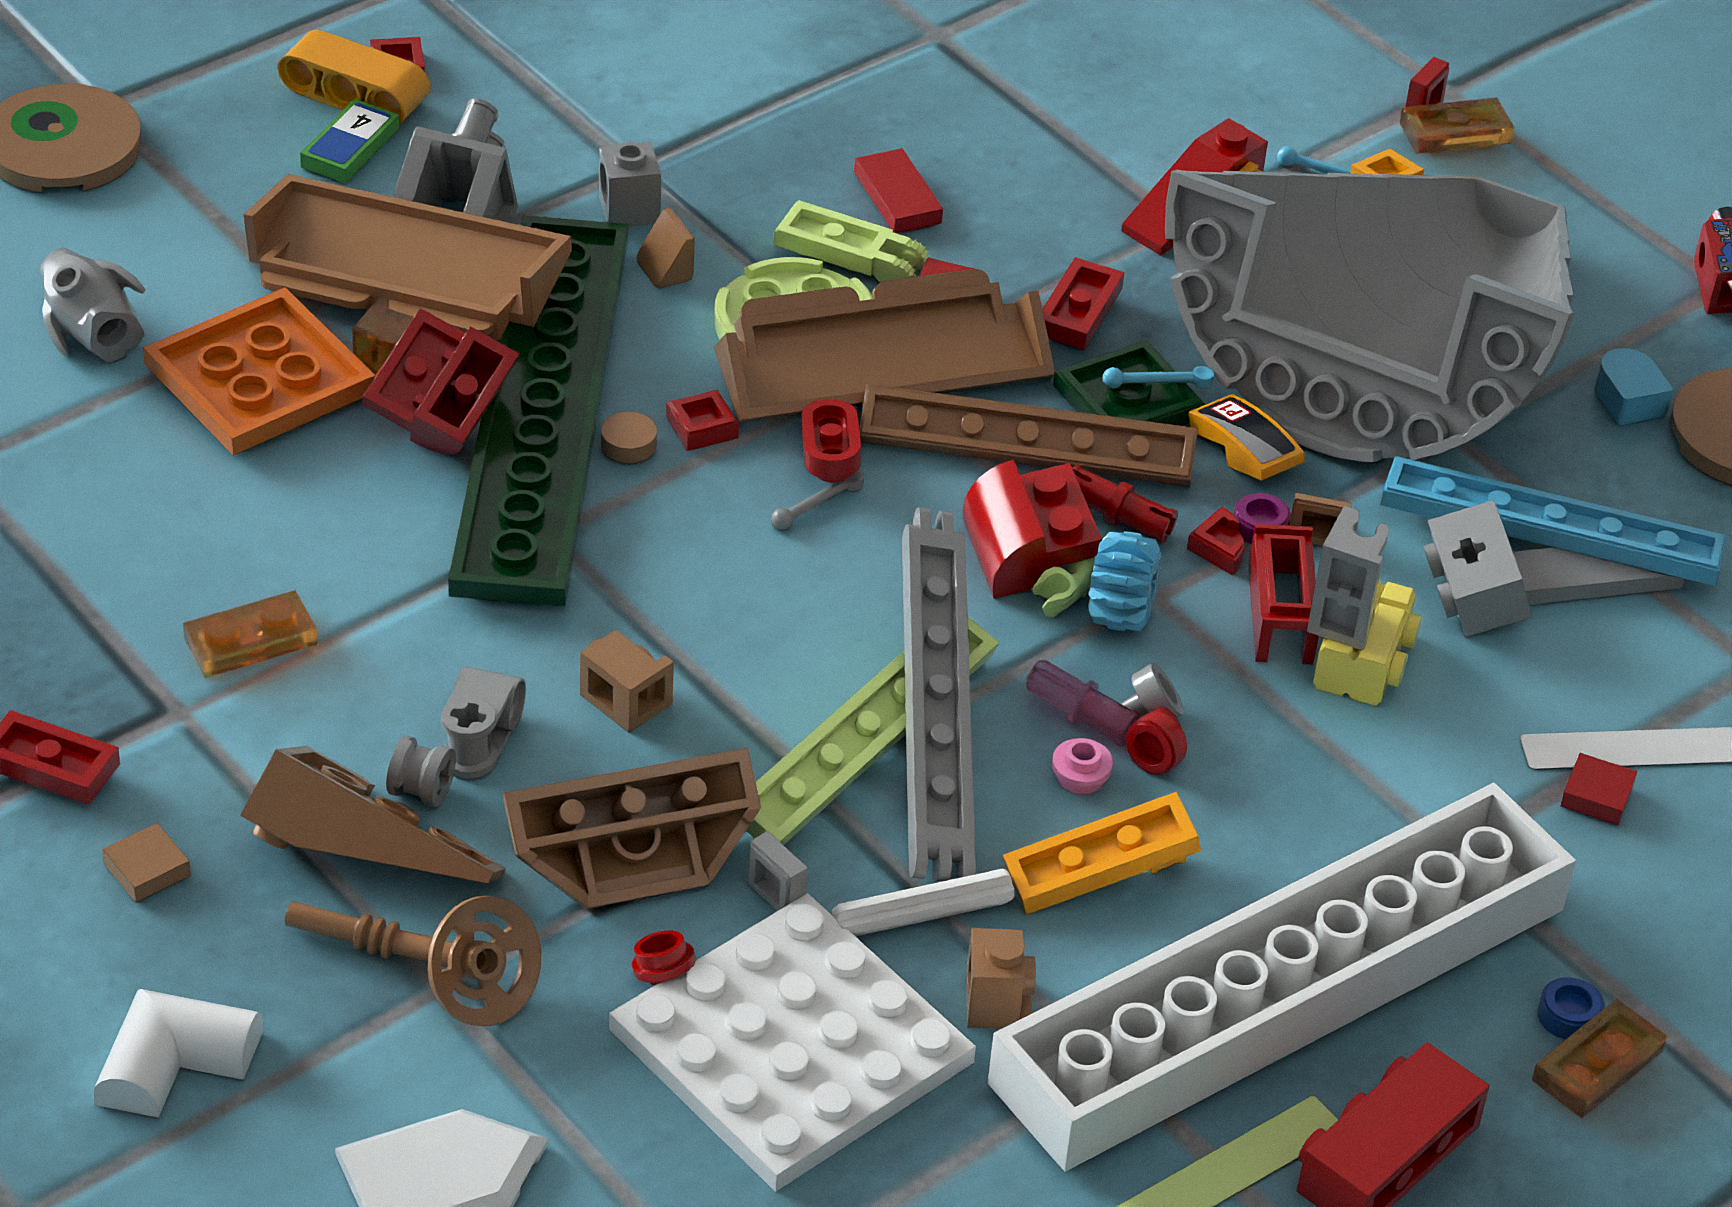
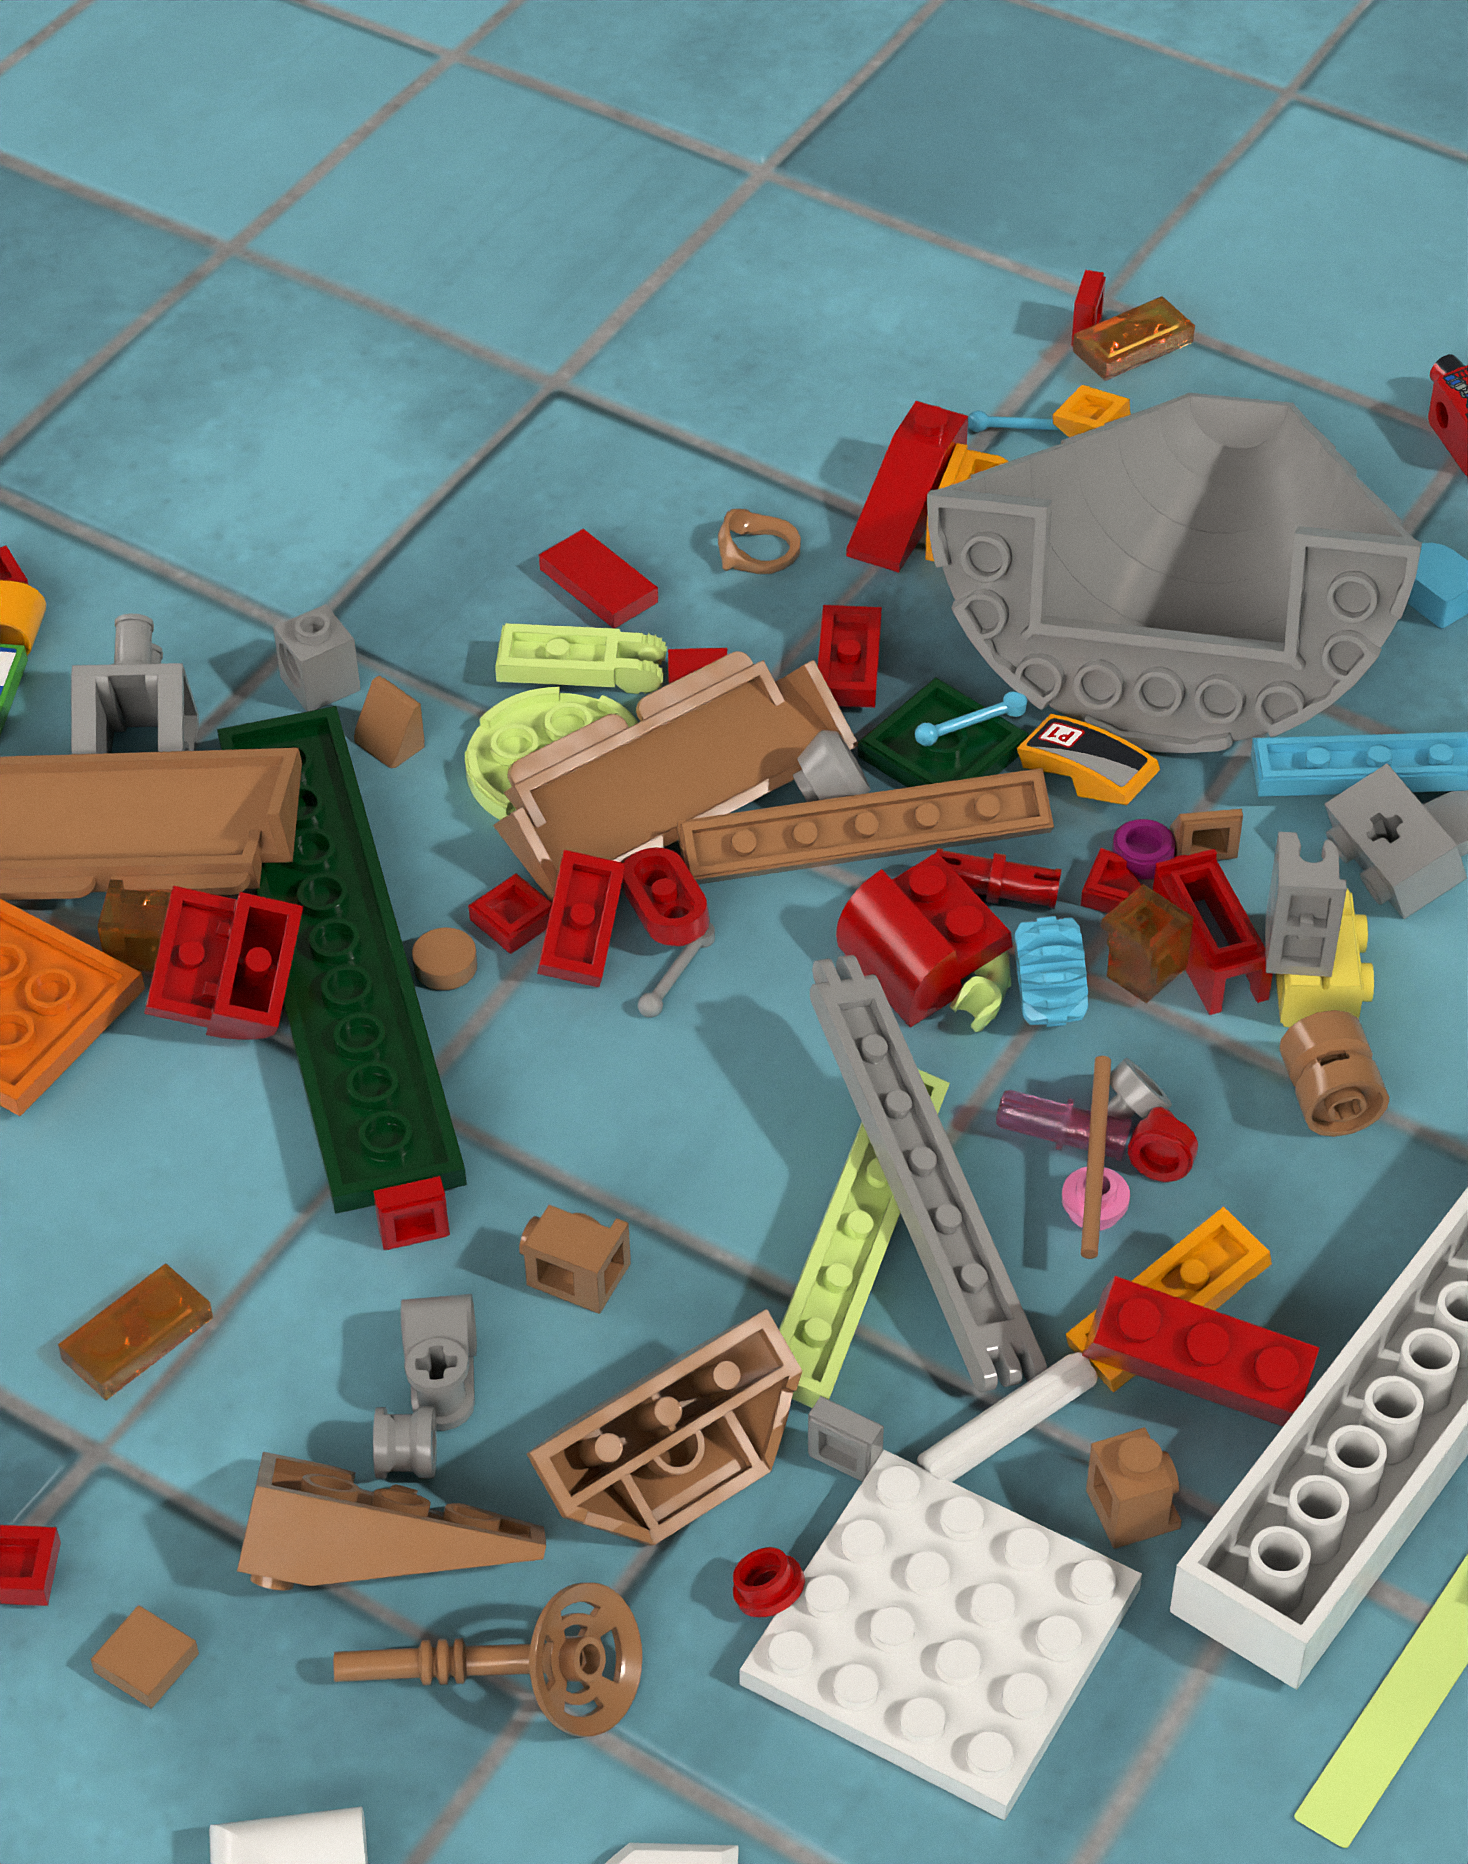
camera: 15 degrees left, 5 degrees up
(507, 609) = (411, 1213): none -> red tile
(751, 434) = (581, 918): none -> red plate
(1017, 379) = (829, 769): none -> light grey cone
(1049, 183) = (746, 522): none -> medium nougat piece
(1091, 729) = (1096, 1158): none -> medium nougat axle
(1096, 887) = (1200, 1351): none -> red brick
(1218, 583) = (1147, 942): none -> clear orange brick
(1331, 727) = (1334, 1073): none -> medium nougat wheel

